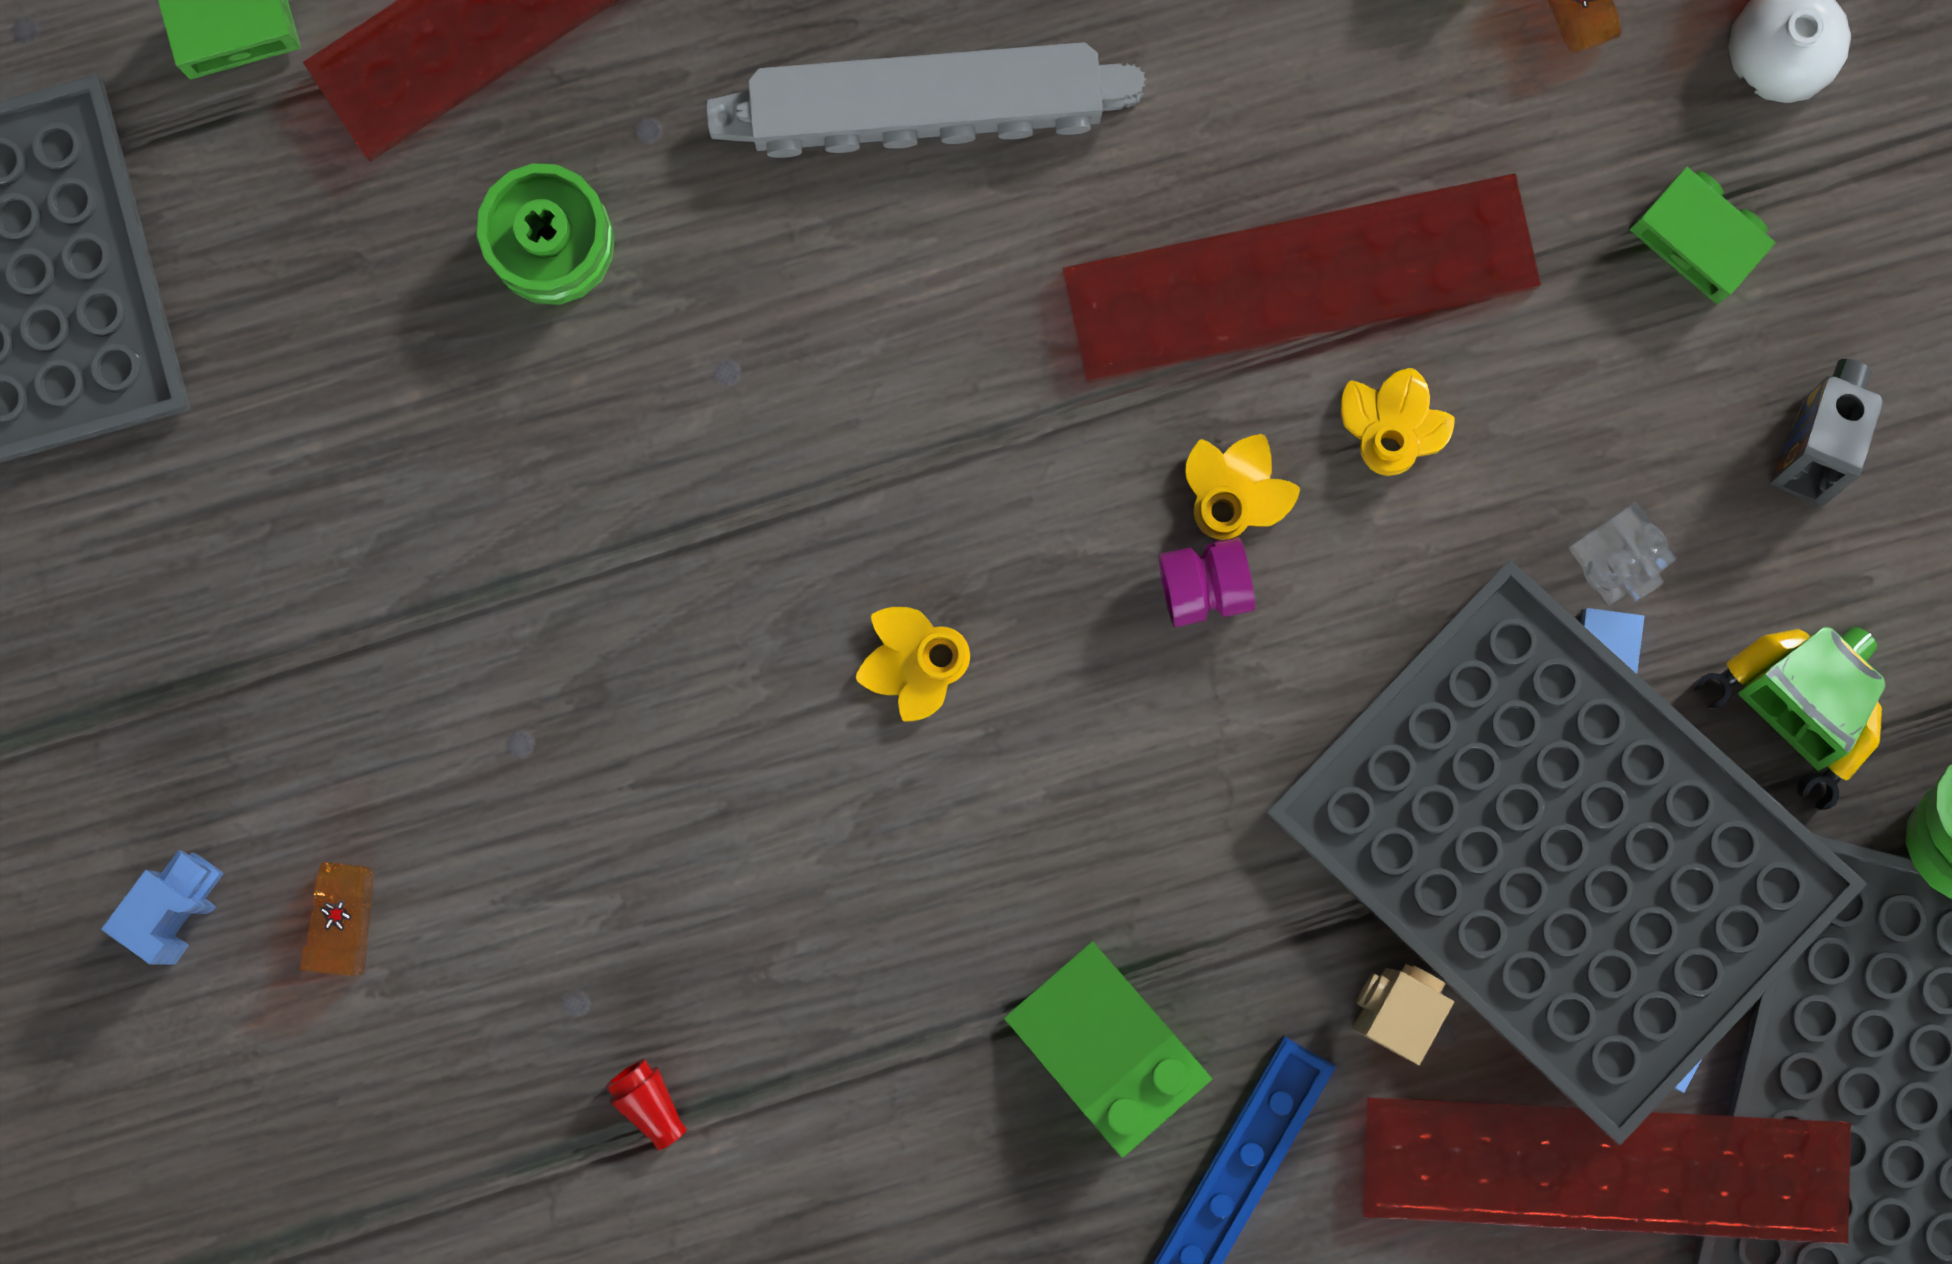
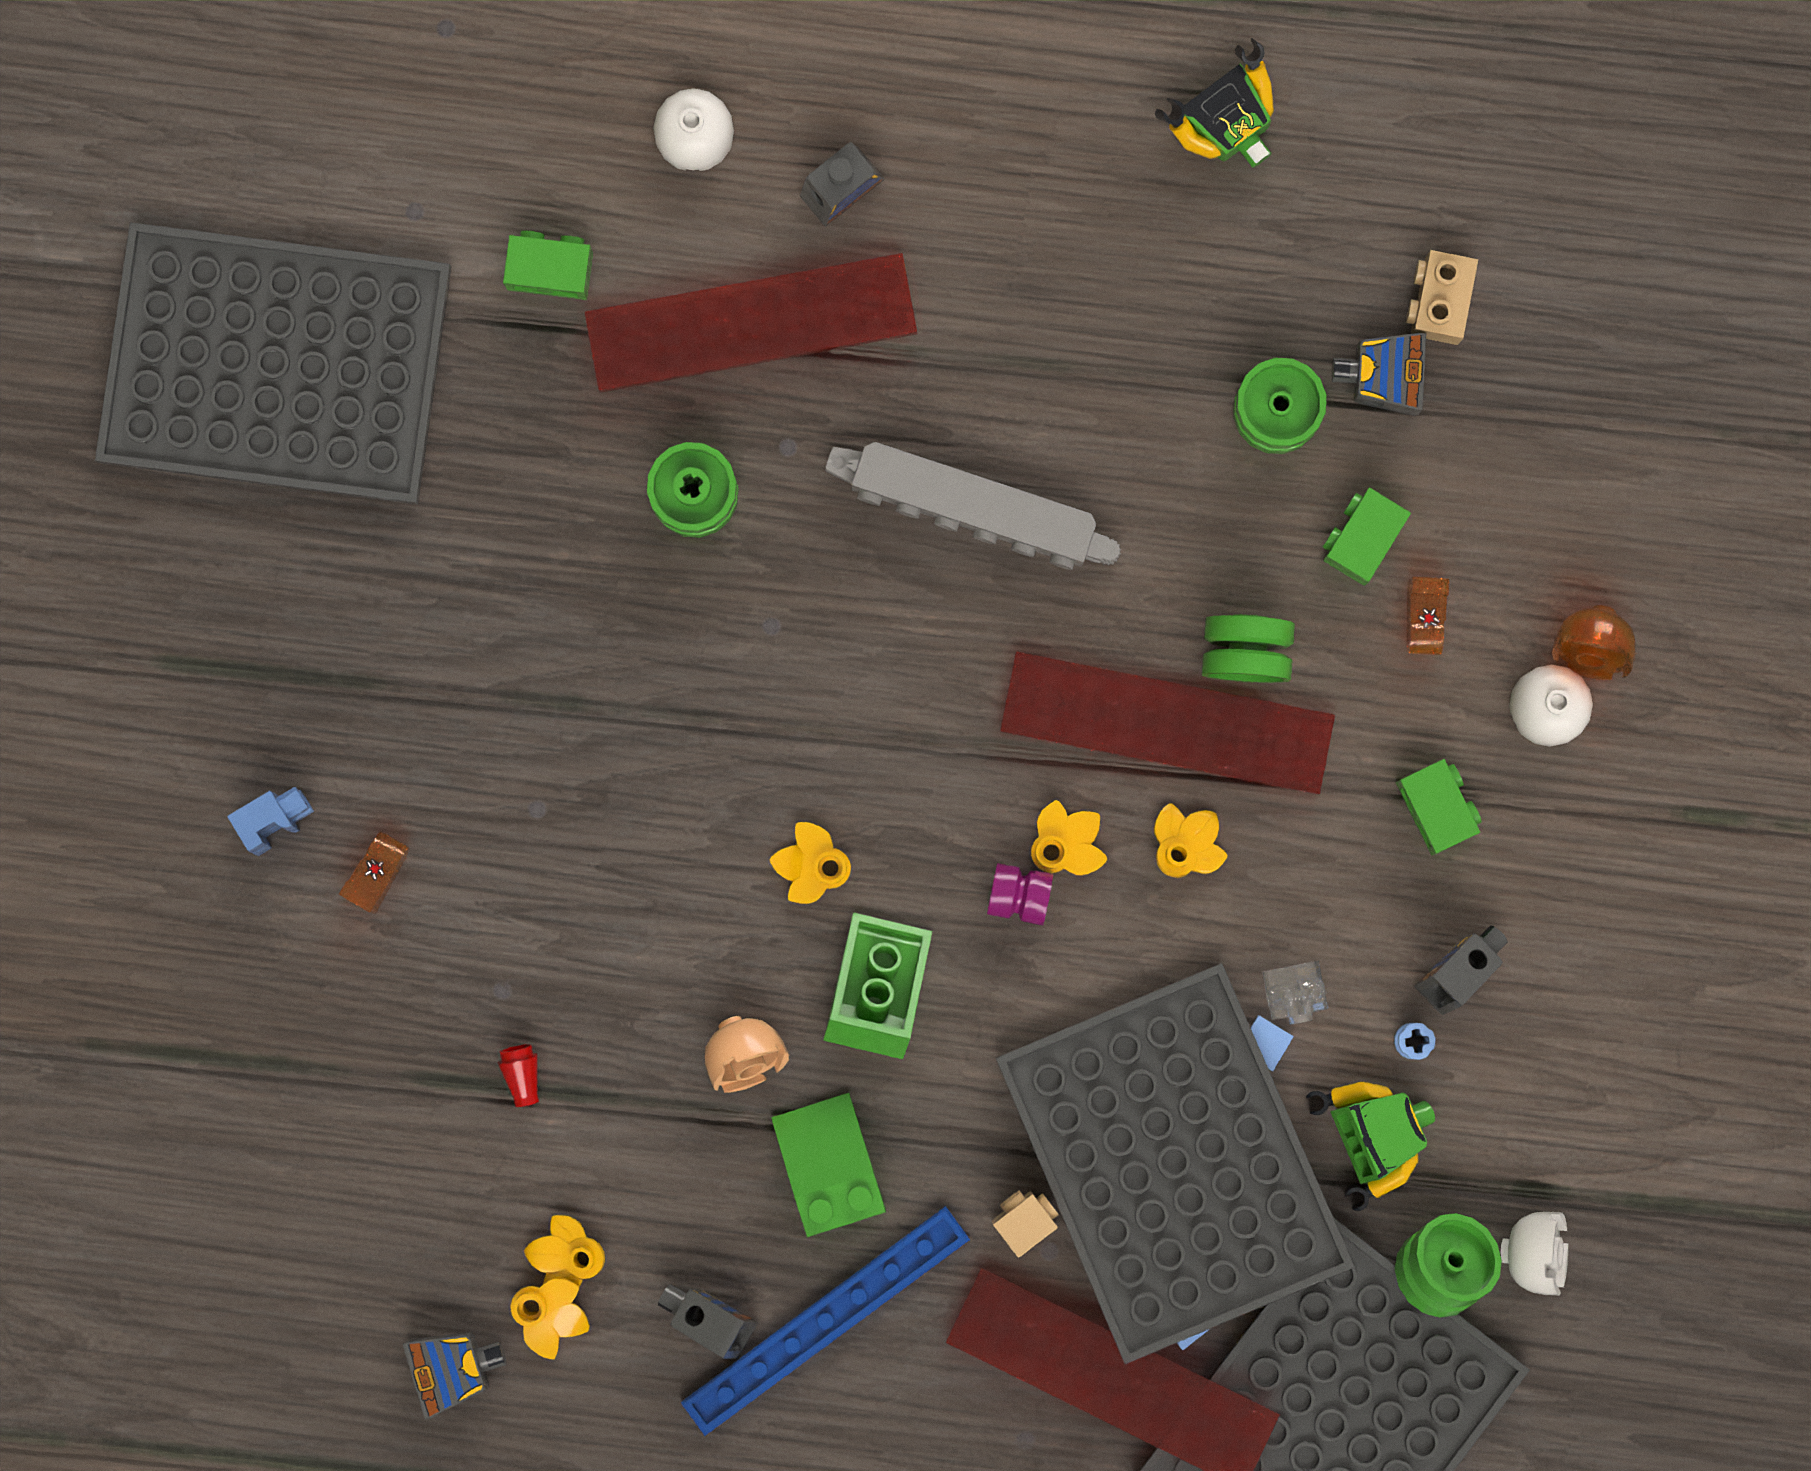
camera: 25 degrees right, 0 degrees up
(929, 948) = (742, 1052): none -> light nougat cylinder
(1071, 784) = (878, 986): none -> bright green slope
(1368, 131) = (1248, 645): none -> bright green wheel
(1818, 564) = (1423, 1050): none -> light blue bush

